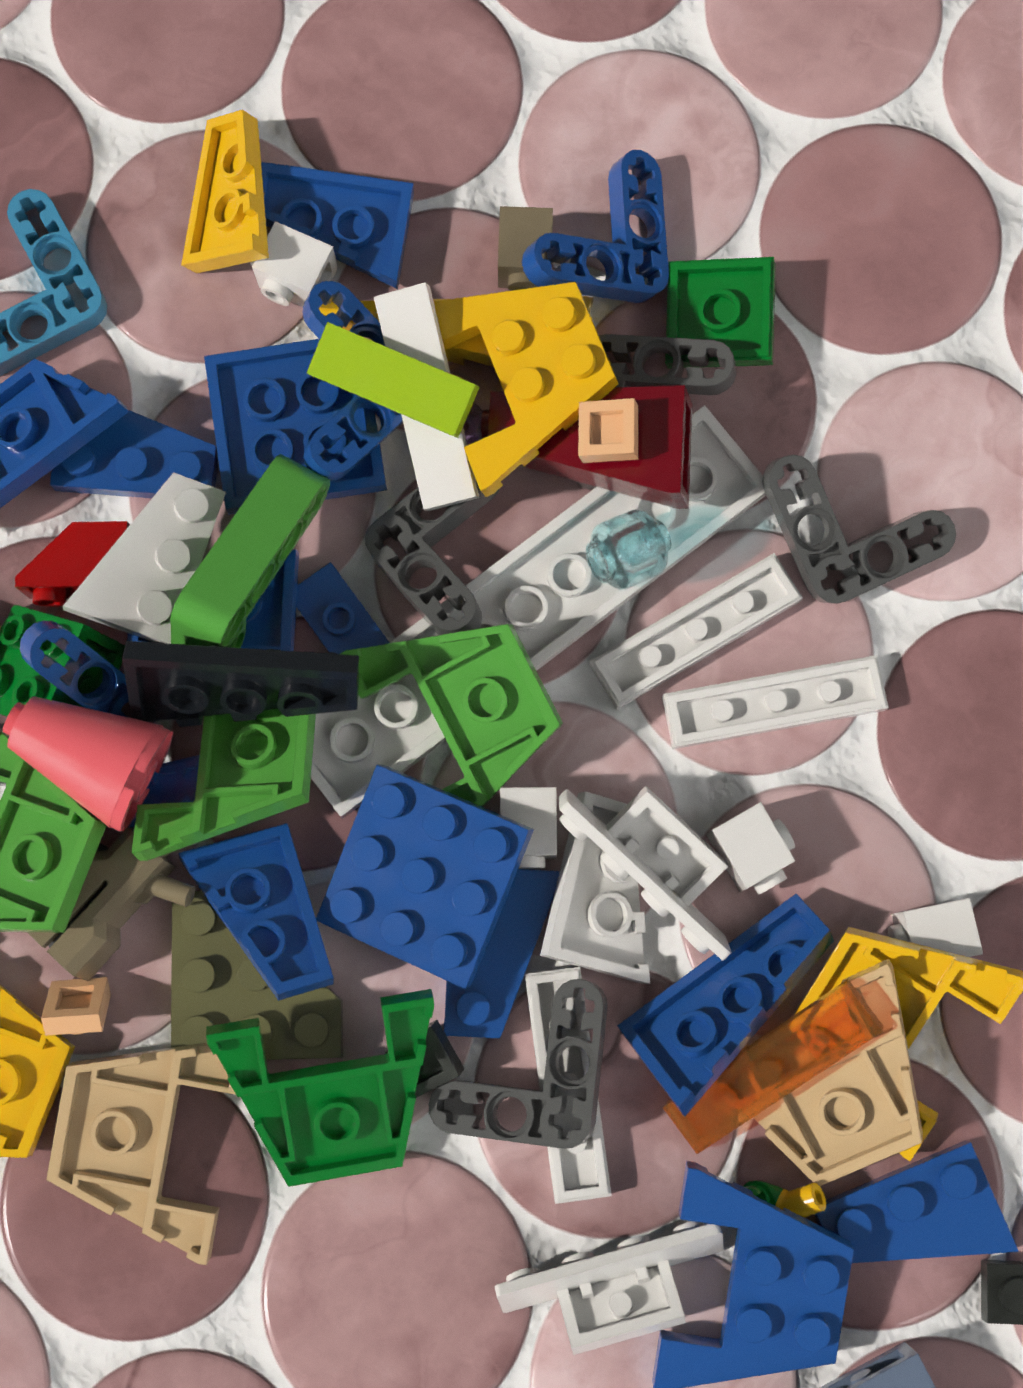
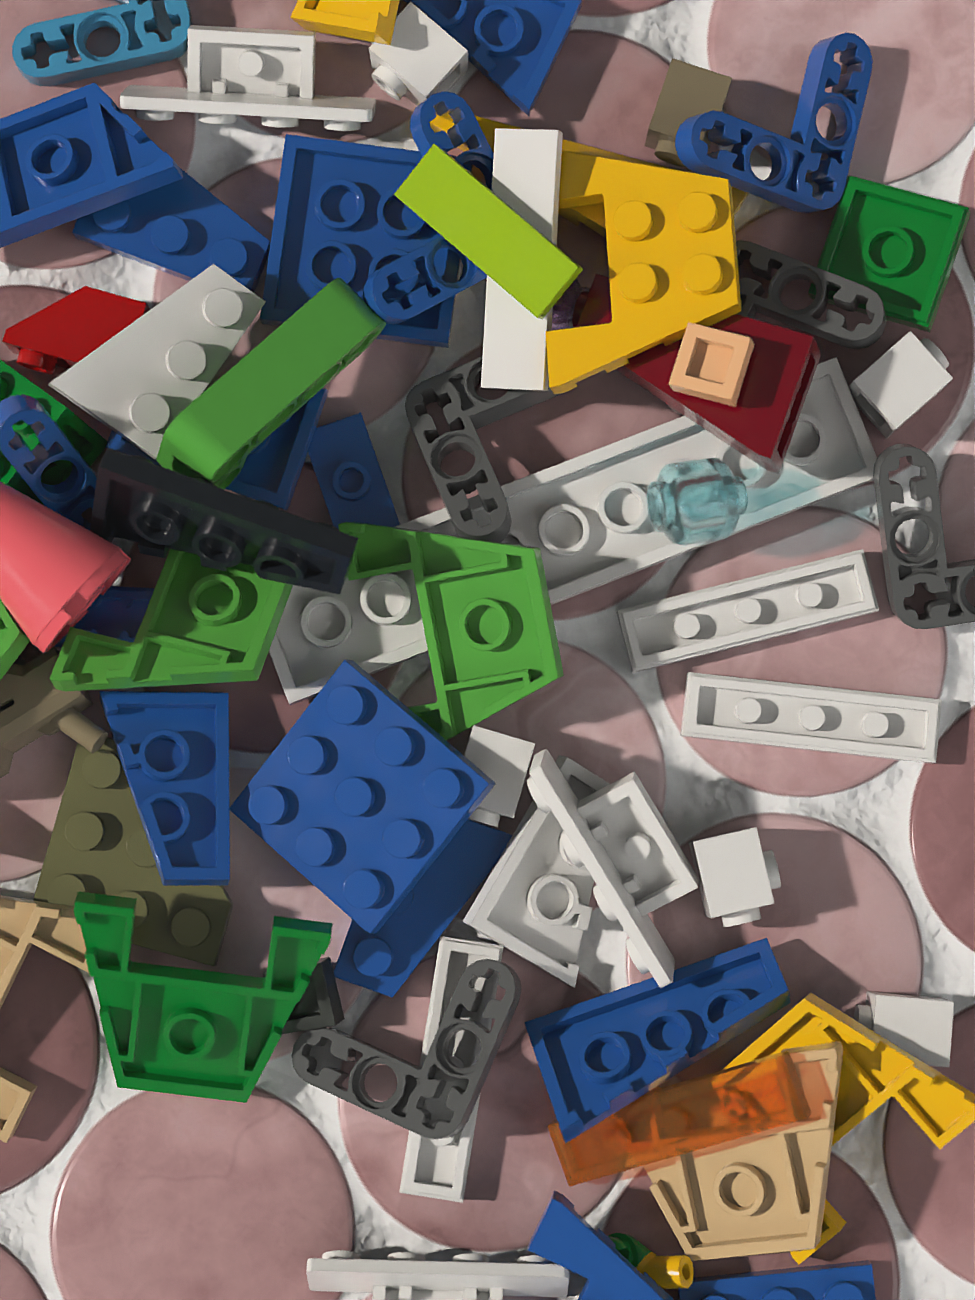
camera: 20 degrees right, 5 degrees up
(162, 317) = (249, 75): none -> white bracket
(762, 411) = (900, 383): none -> white brick

